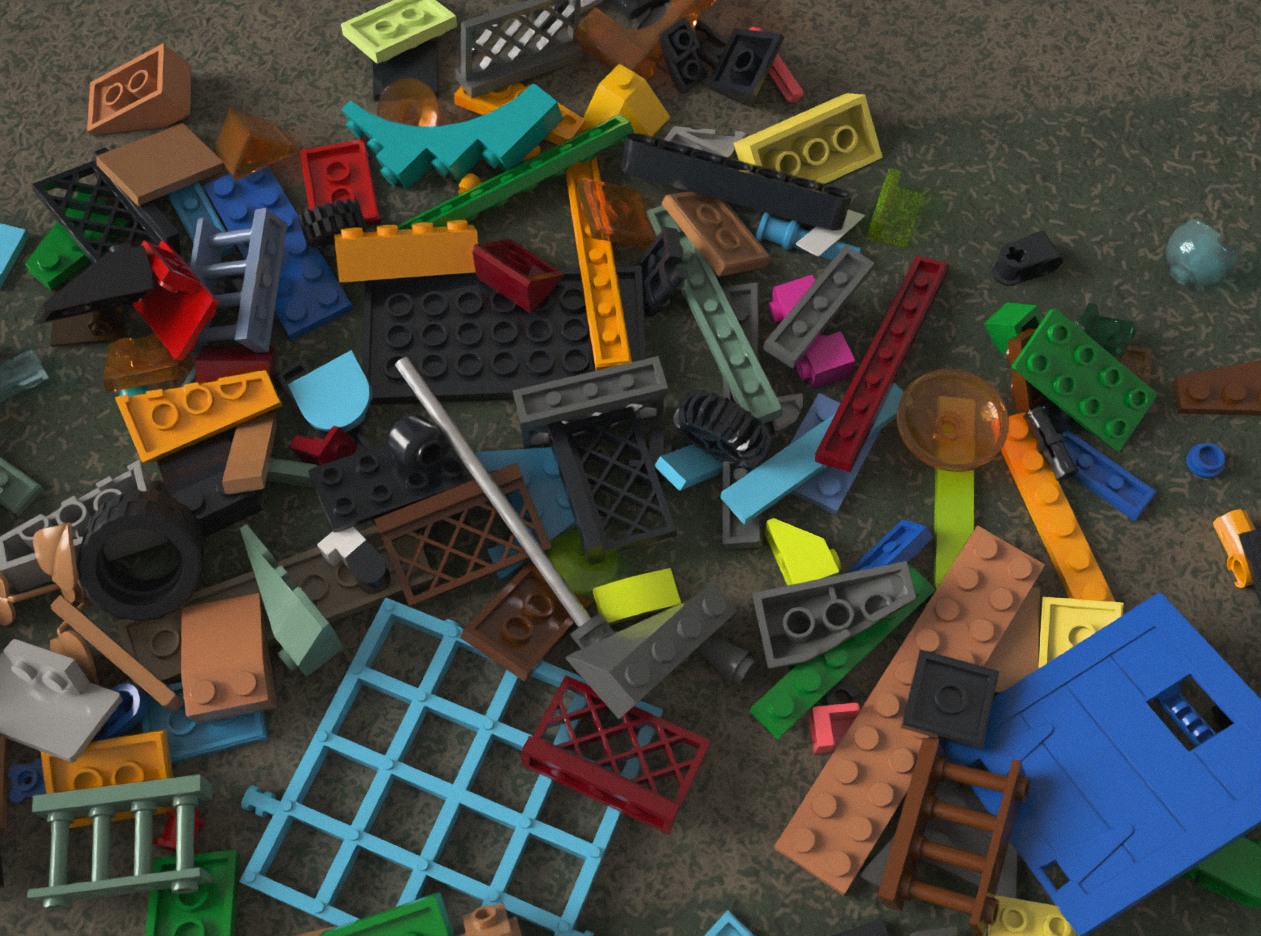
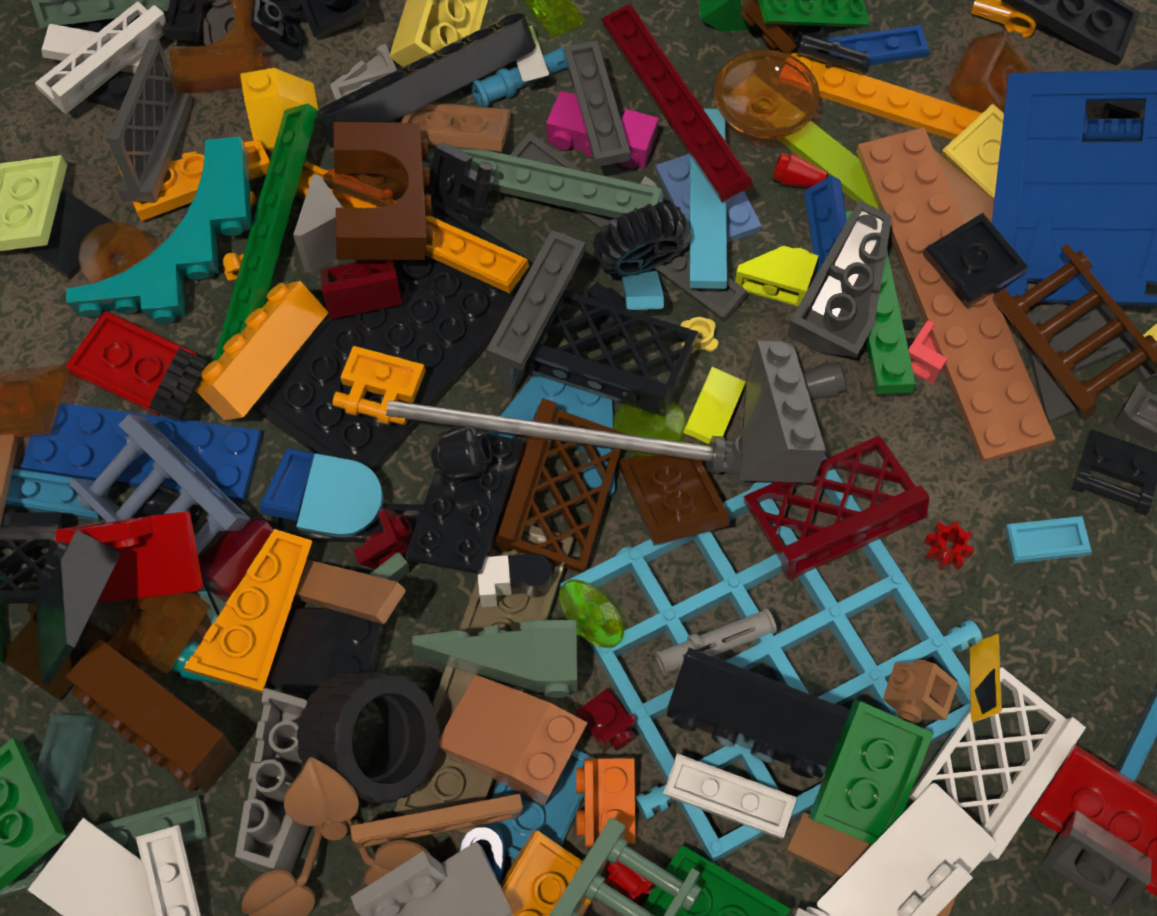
camera: 50 degrees left, 0 degrees up
(65, 409) = (151, 718): none -> reddish brown brick
(233, 763) = (608, 794): none -> orange bracket
(296, 856) = (729, 796): none -> white tile
(301, 718) = (608, 721): none -> dark red bracket
(312, 355) = (288, 485): none -> blue tile
(368, 823) = (756, 714): none -> black slope
(379, 636) = (594, 613): none -> clear neon green dish
(404, 740) = (757, 625): none -> light grey pin
(454, 344) = (378, 374): none -> light orange plate
(540, 210) = (317, 226): none -> light grey slope
(580, 260) = (392, 230): none -> reddish brown arch
(670, 863) = (941, 553): none -> red gear
(694, 528) = (706, 329): none -> light yellow plate
(913, 500) = (797, 172): none -> red cone
(1162, 569) = (985, 71): none -> clear orange slope

